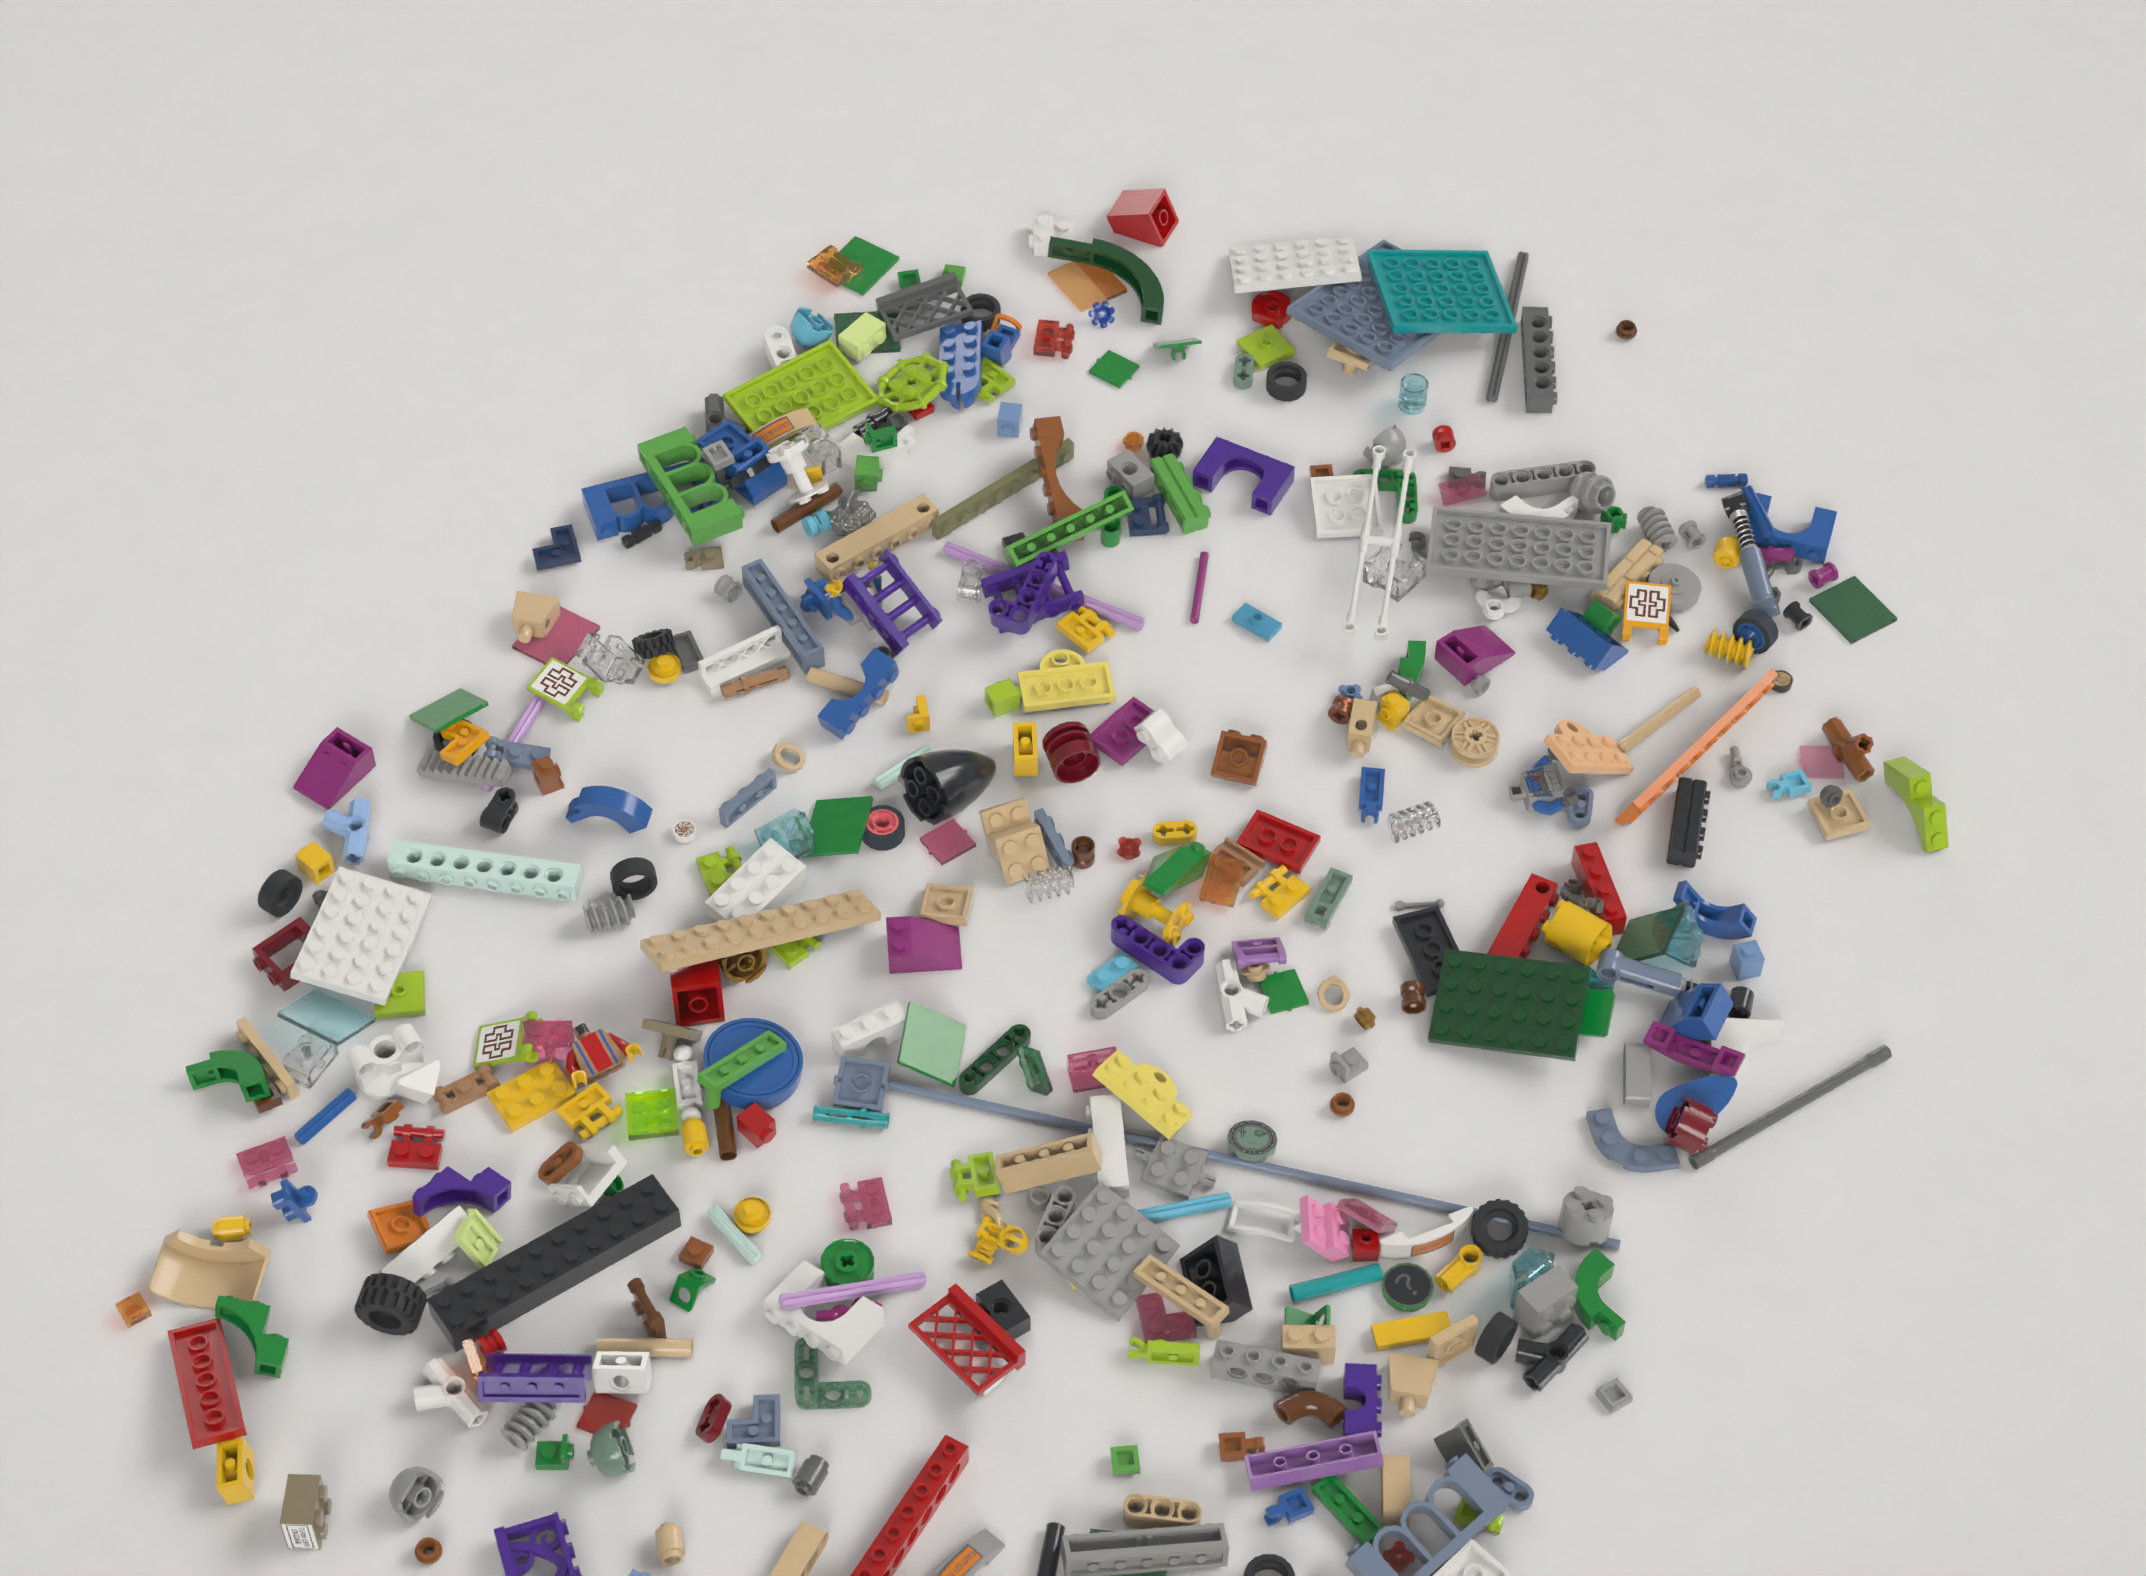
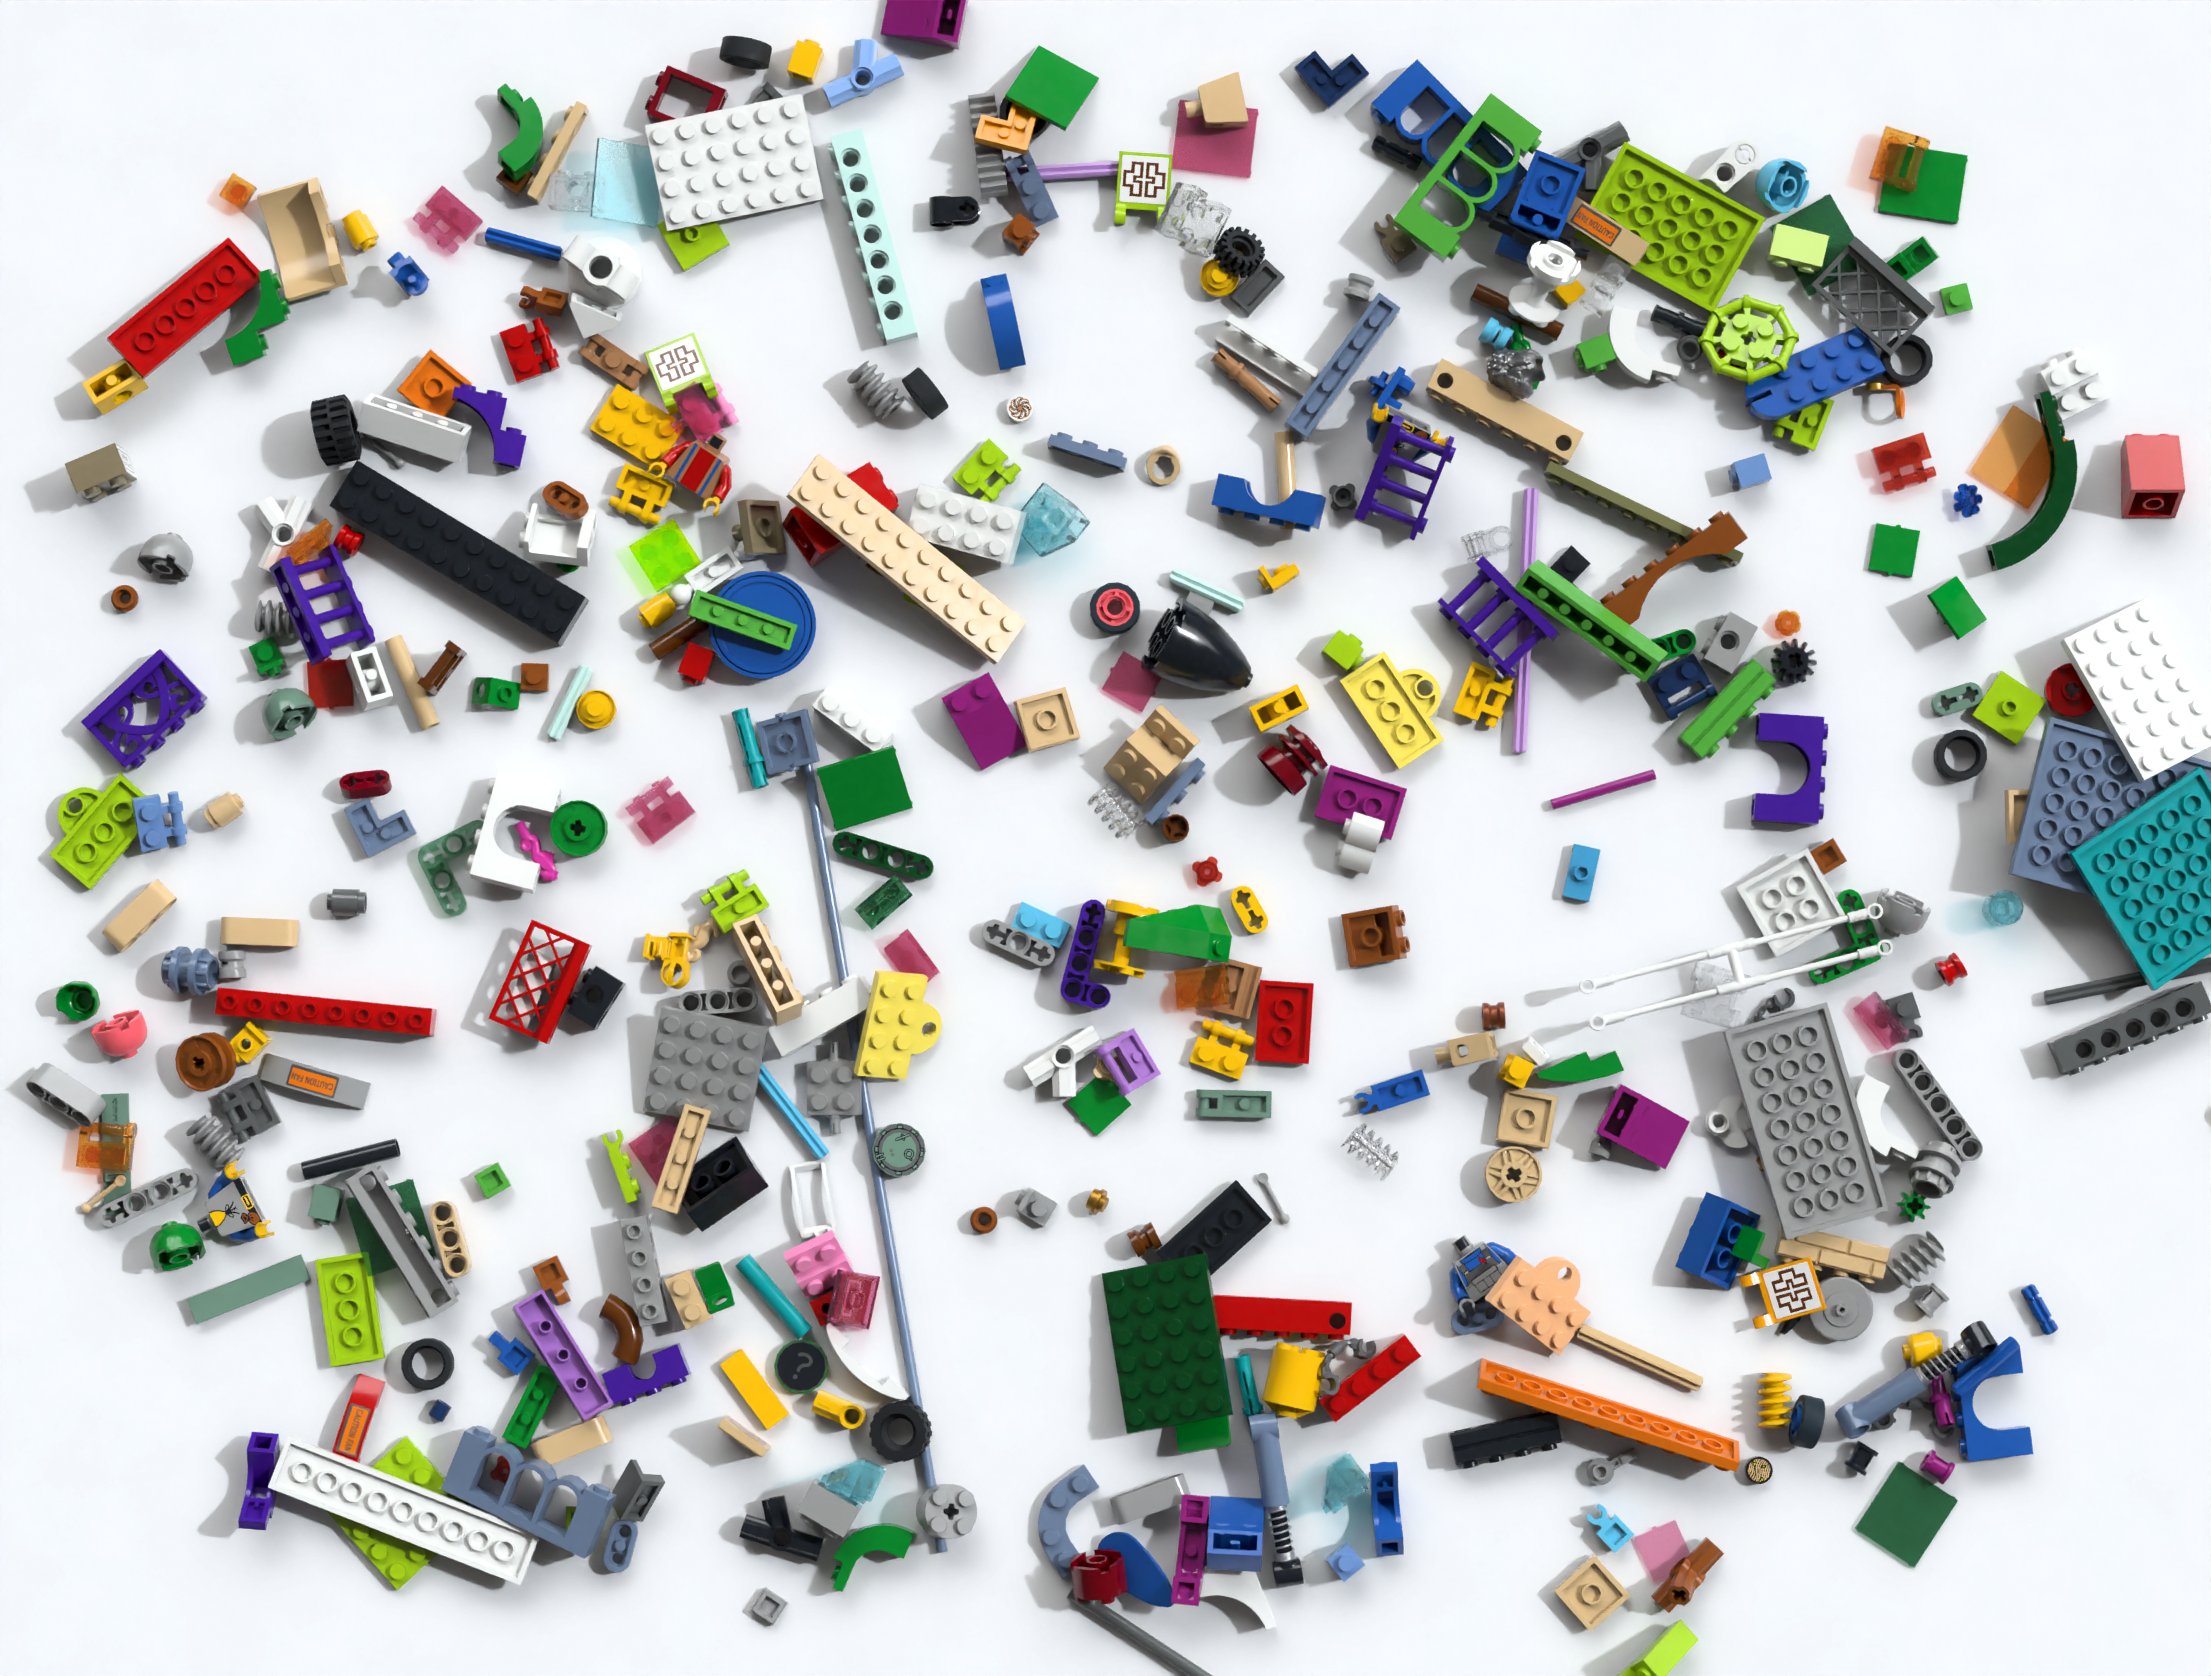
camera: 70 degrees right, 35 degrees up
(477, 1238) = (444, 470): yellowish green plate -> none
(718, 455) = (1512, 191): light grey bracket -> none
(762, 1459) = (343, 848): light aqua hinge -> none
(839, 825) = (1094, 564): green piece -> none
(852, 1290) = (547, 848): lavender axle -> none
(881, 438) = (1635, 352): green bracket -> none
(1000, 343) = (1858, 409): blue brick -> none
(1029, 592) = (1480, 620): dark purple beam -> none
(1336, 981) = (1126, 1148): tan piece -> none
(1351, 691) = (1530, 1016): medium blue plate -> none
(1407, 686) = (1542, 1077): dark grey axle -> none
(1410, 1381) = (691, 1411): tan torso -> none
(1496, 1337) = (770, 1475): black tyre -> none
(1650, 934) = (1318, 1452): clear green piece -> none
(1831, 796) = (1600, 1580): dark grey plate -> none

